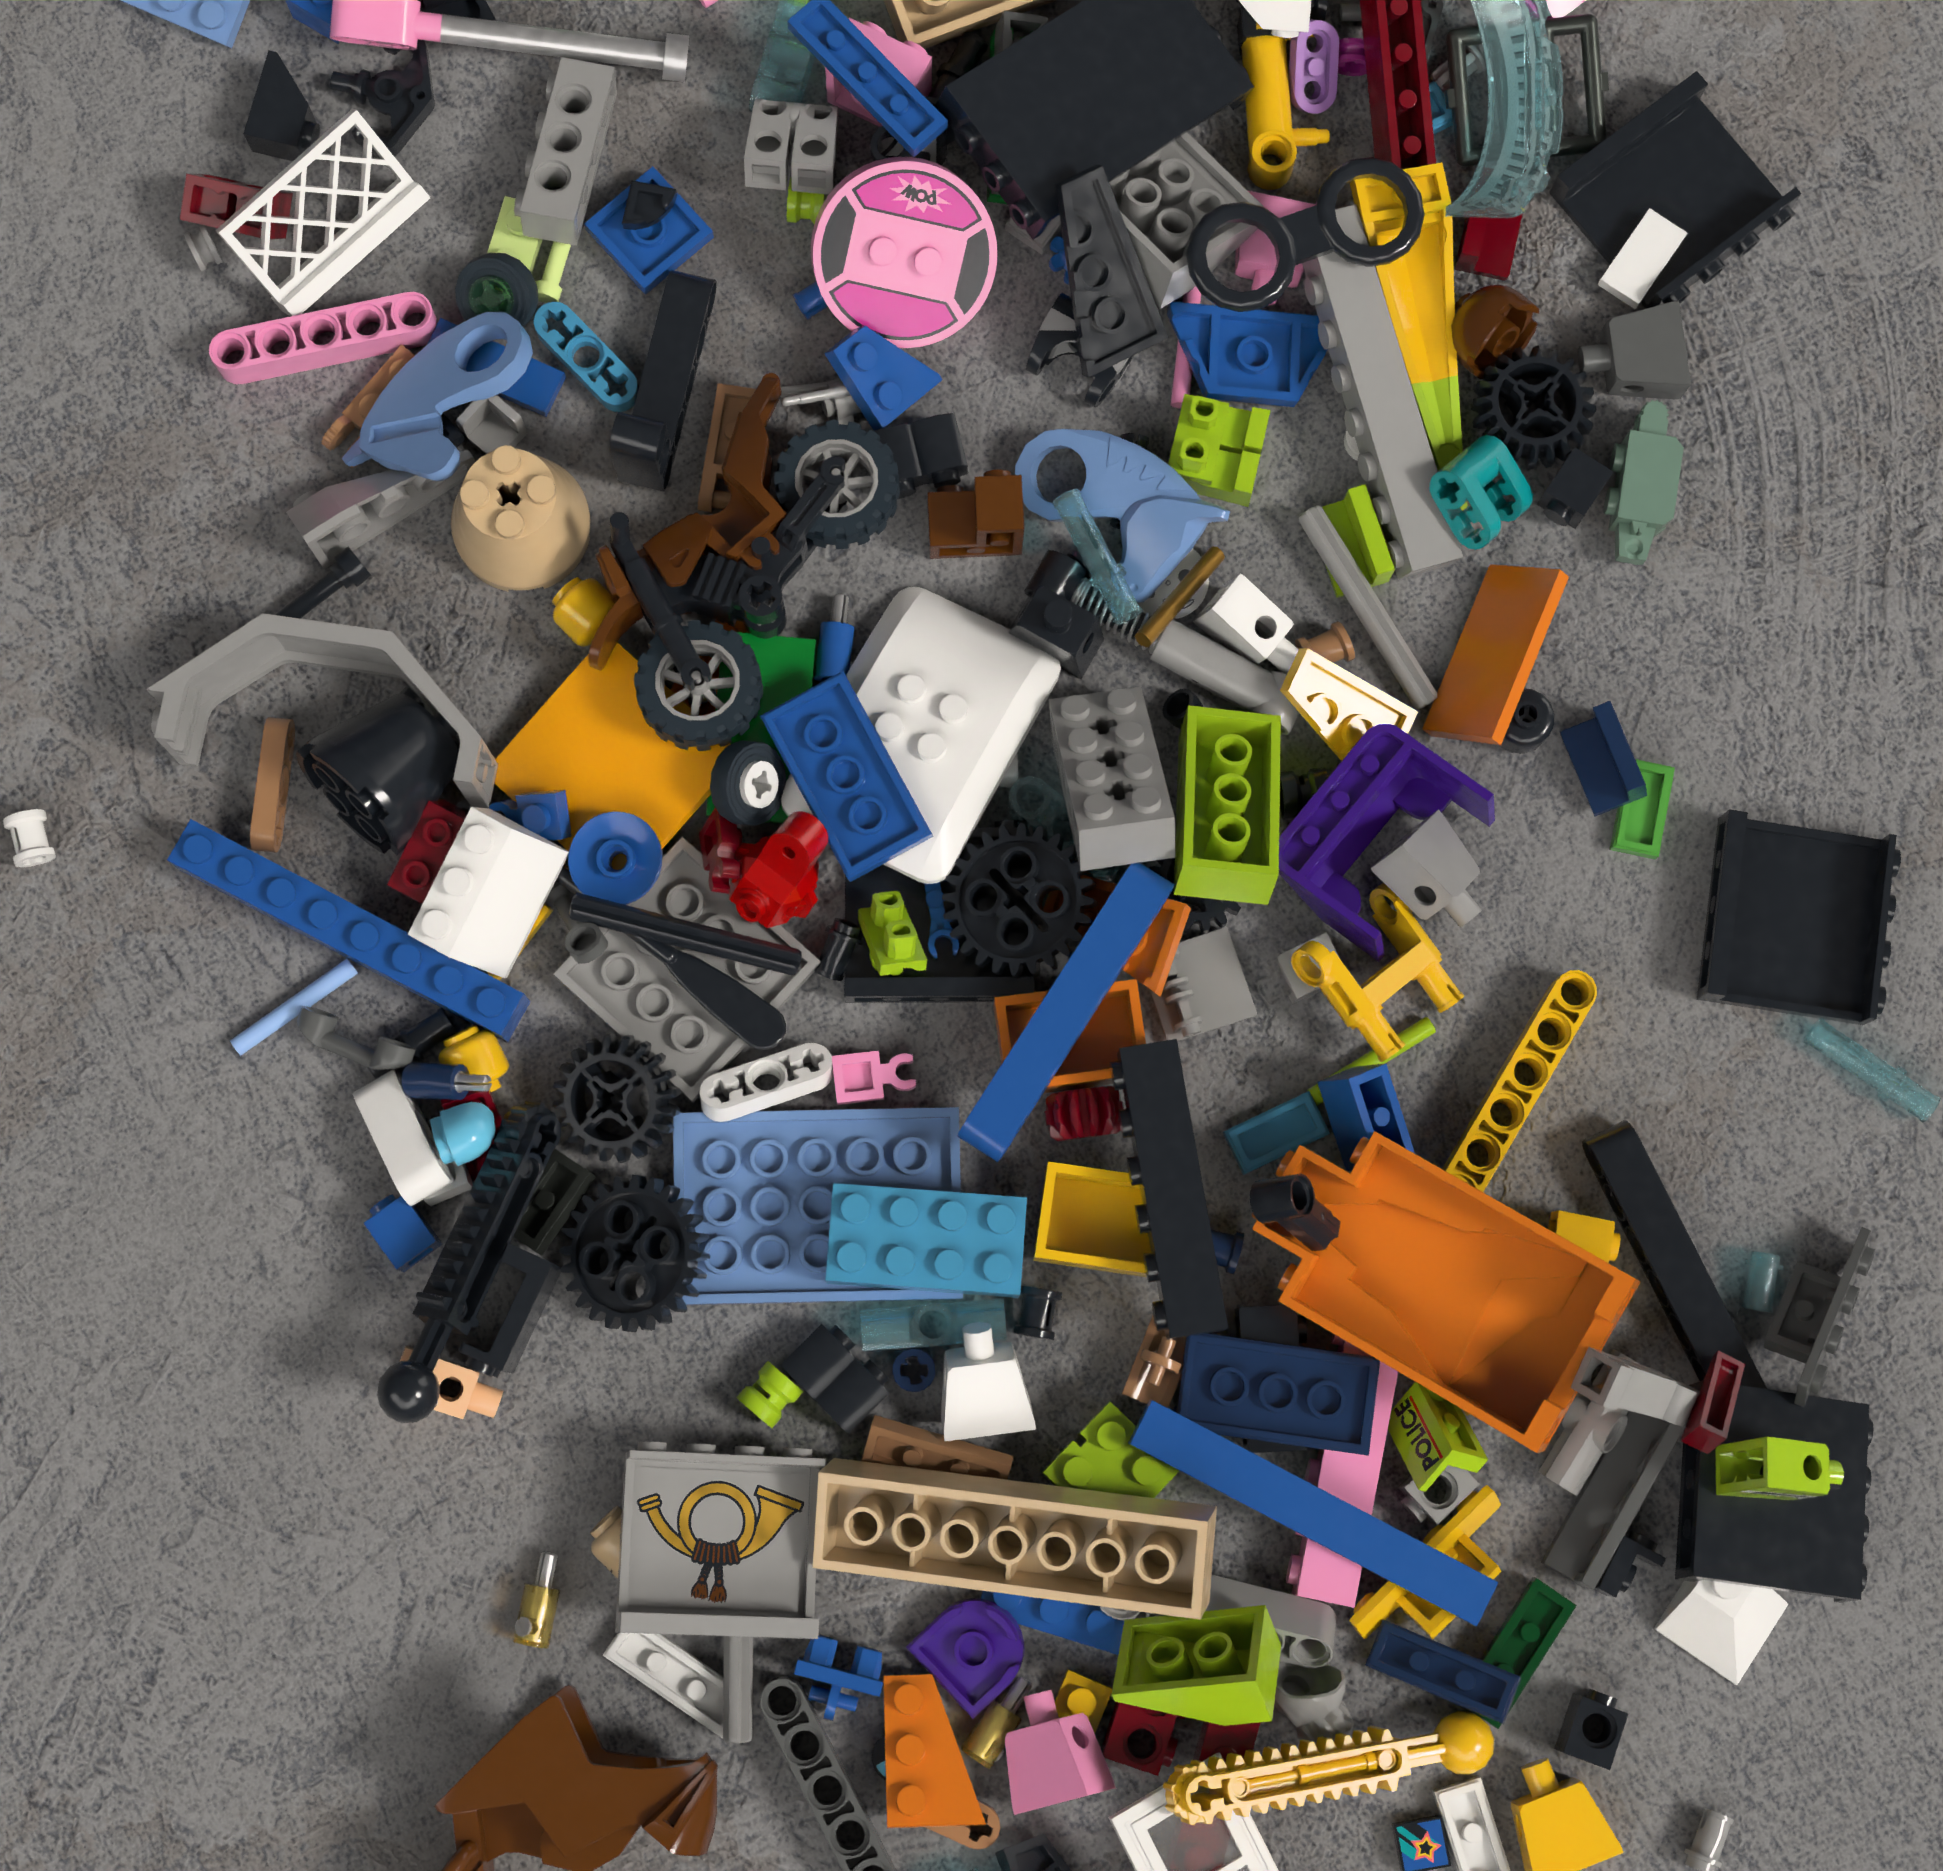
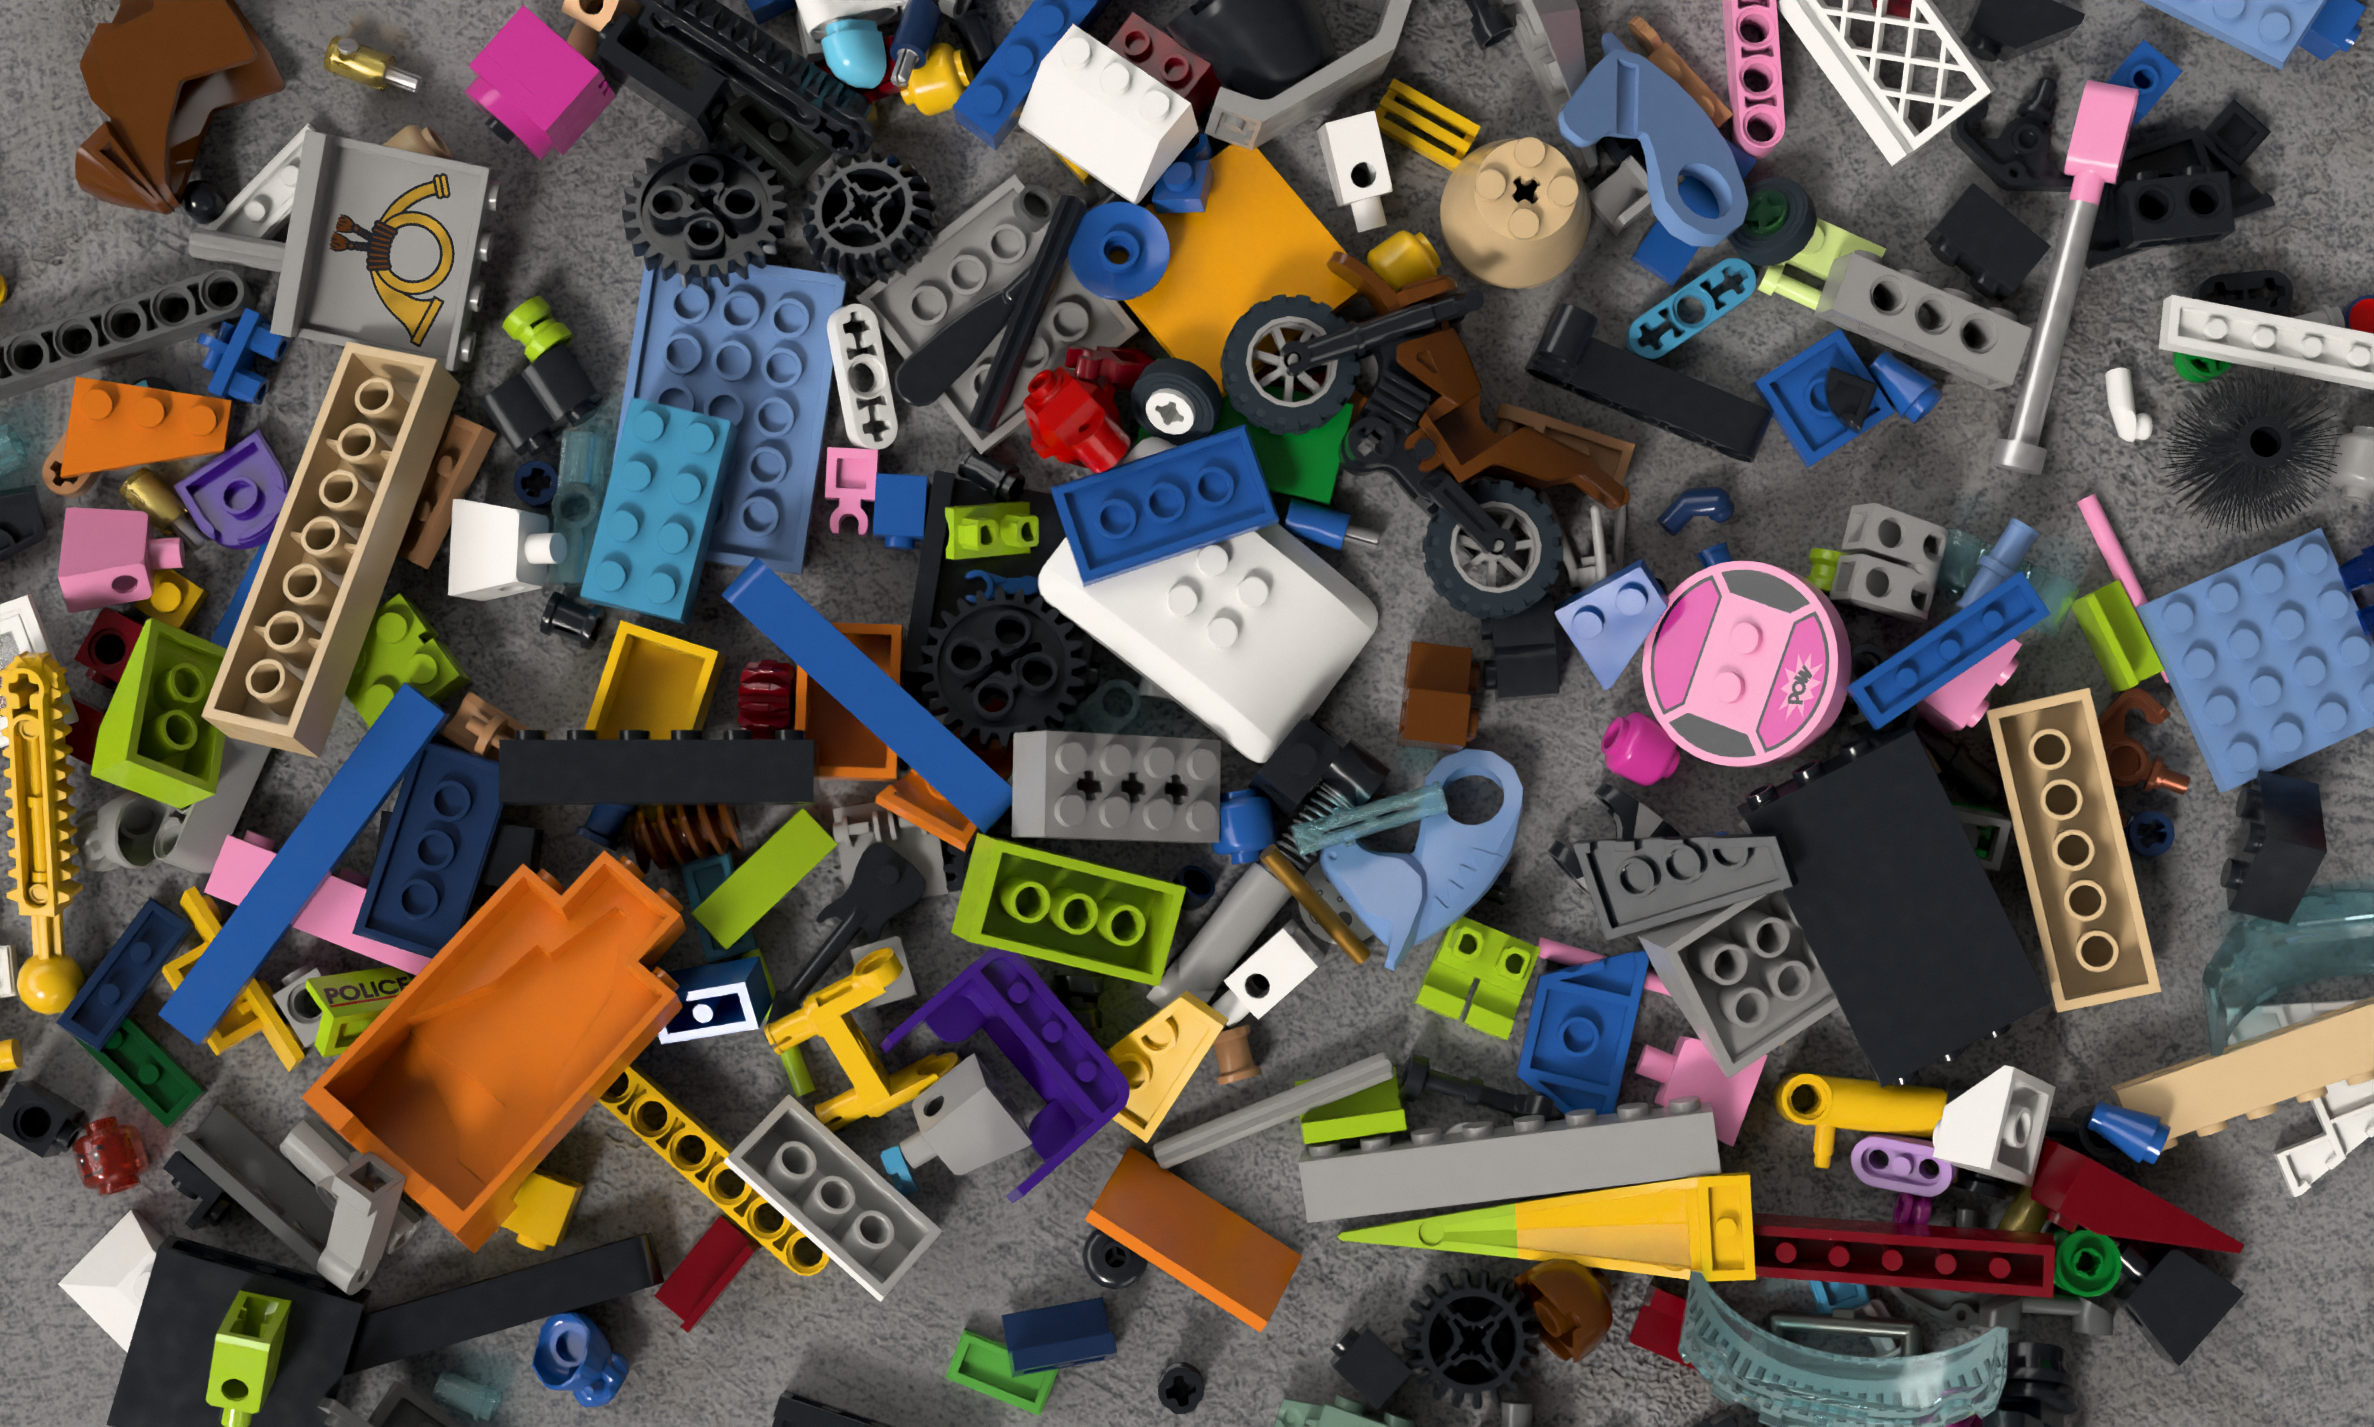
camera: 100 degrees right, 5 degrees up
(434, 607) = (1434, 109): none -> yellow tile
(487, 110) = (1986, 243): none -> black brick
(499, 663) = (1357, 144): none -> white torso
(539, 1432) = (536, 87): none -> dark pink piece
(628, 161) = (1905, 387): none -> blue cone
(693, 1738) = (203, 201): none -> black hinge
(760, 328) = (1696, 502): none -> dark blue arm
(780, 53) = (2001, 561): none -> medium blue pin
(885, 1025) = (900, 510): none -> blue brick
(991, 340) = (1639, 749): none -> dark pink head
(1119, 668) = (1245, 826): none -> blue head
(1217, 1175) = (682, 832): none -> reddish brown piece
(1236, 986) = (879, 890): none -> black piece
(1246, 1093) = (764, 879): none -> lime tile
(1293, 1205) = (611, 895): black piece -> none
(1305, 234) = (1689, 1106): black bar -> none
(1314, 486) = (1471, 1091): none -> black piece
(1471, 479) = (1394, 1240): teal connector -> none
(1481, 928) = (900, 1170): none -> dark azure tile
(1522, 973) = (833, 1197): none -> white slope
(1609, 1081) = (707, 1272): none -> dark red panel
(1613, 1653) = (110, 1156): none -> clear red head
(1624, 661) = (1195, 1394): none -> black bush
(1710, 1185) = (578, 1358): none -> blue hair
(1715, 1404) = (334, 1309): dark red piece -> none

